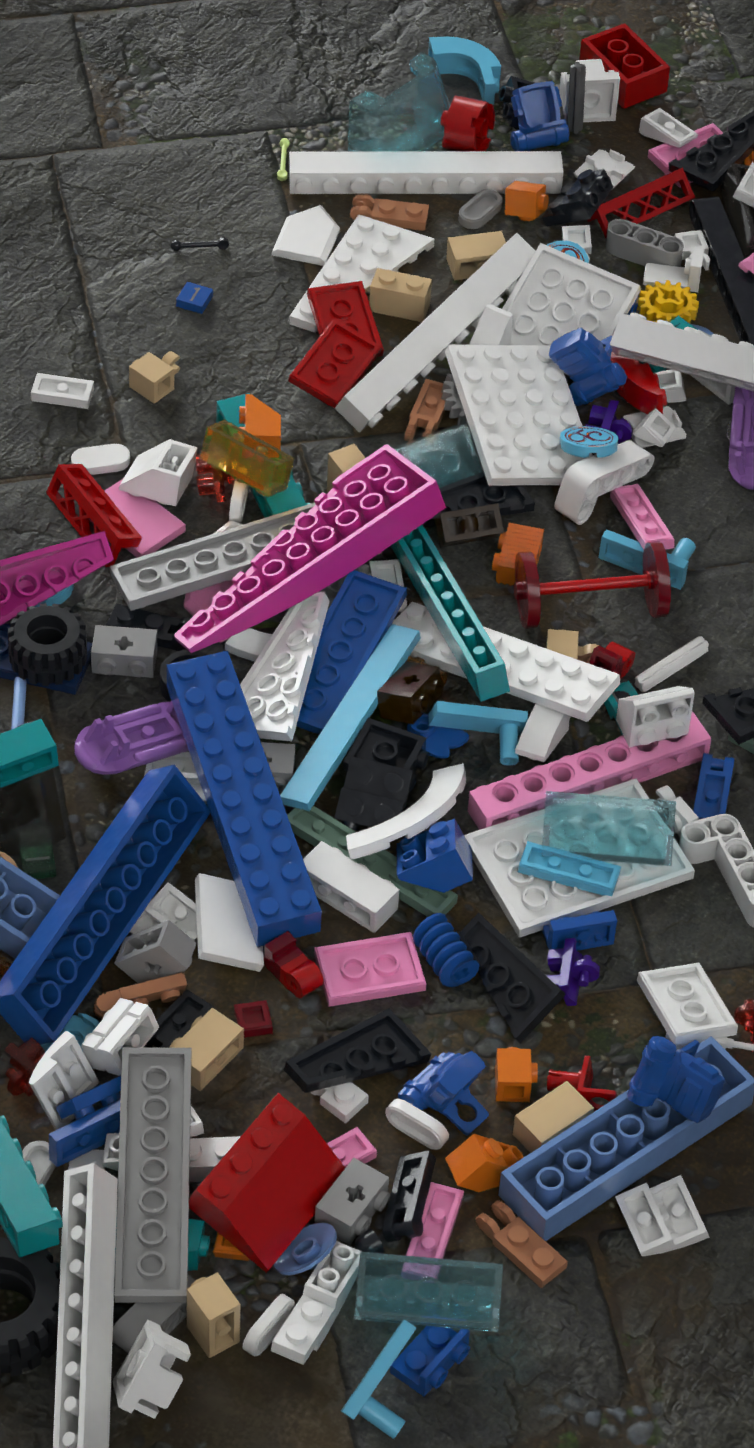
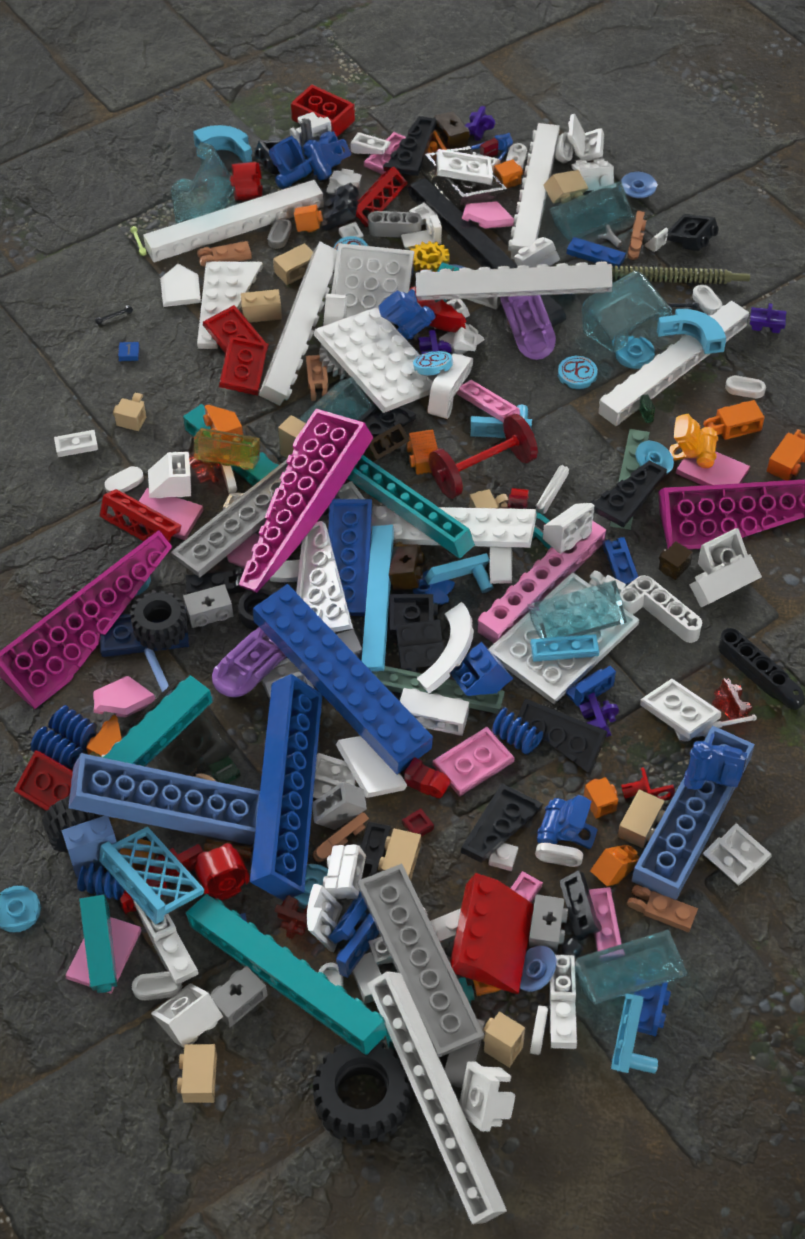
camera: 20 degrees left, 5 degrees up
(594, 121) = (326, 153): none -> blue piece

